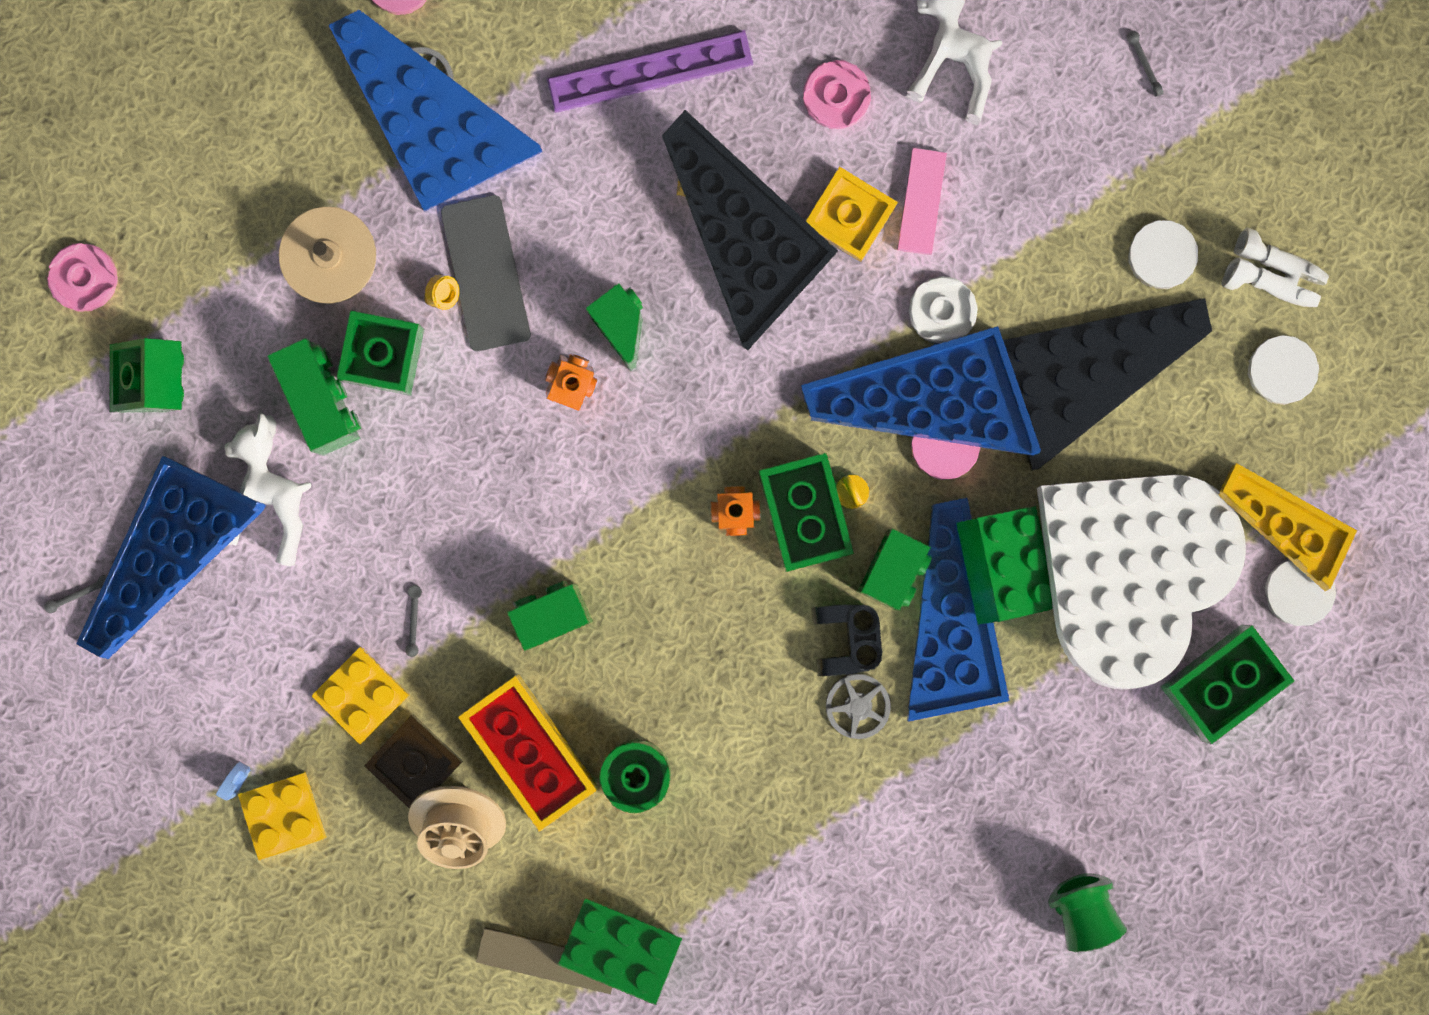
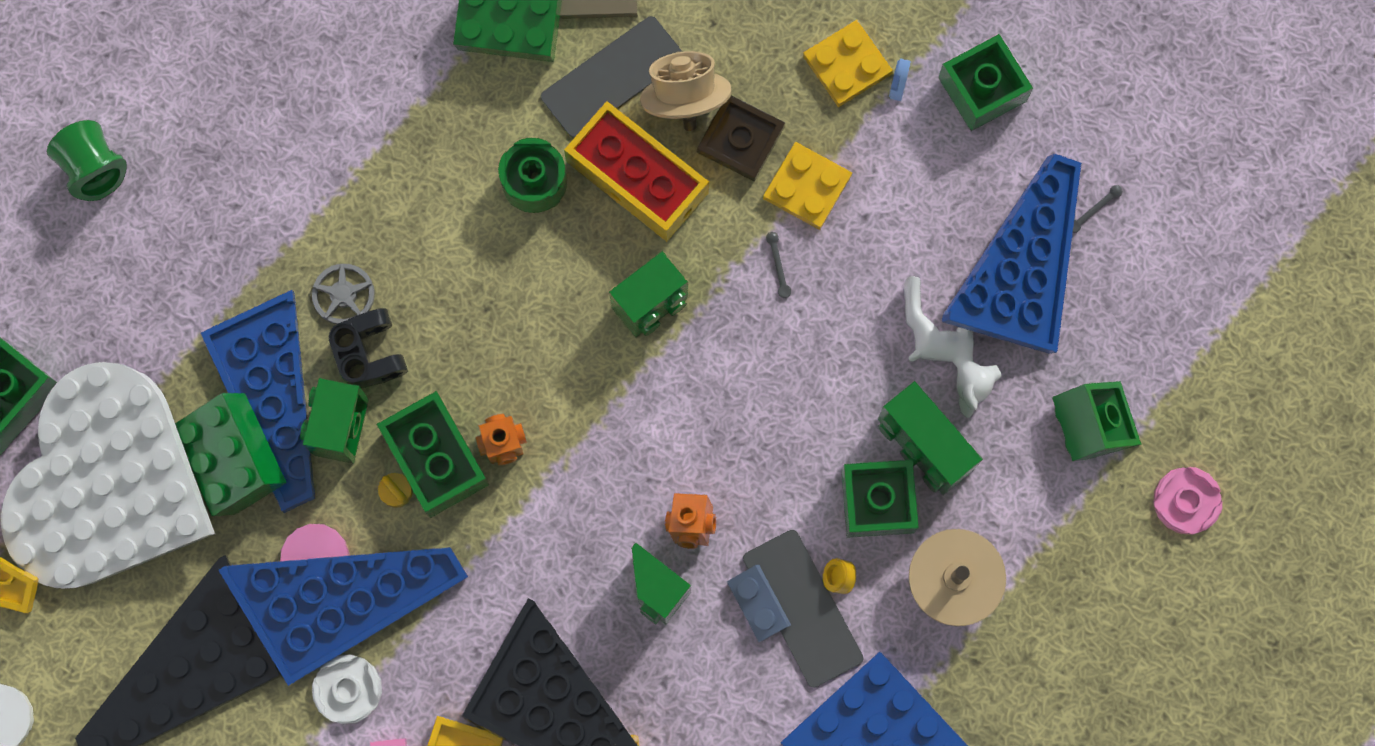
camera: 165 degrees right, 10 degrees down
(146, 752) = (985, 82): none -> green brick
(526, 287) = (758, 603): none -> sand blue plate
(529, 867) = (610, 75): none -> dark grey piece

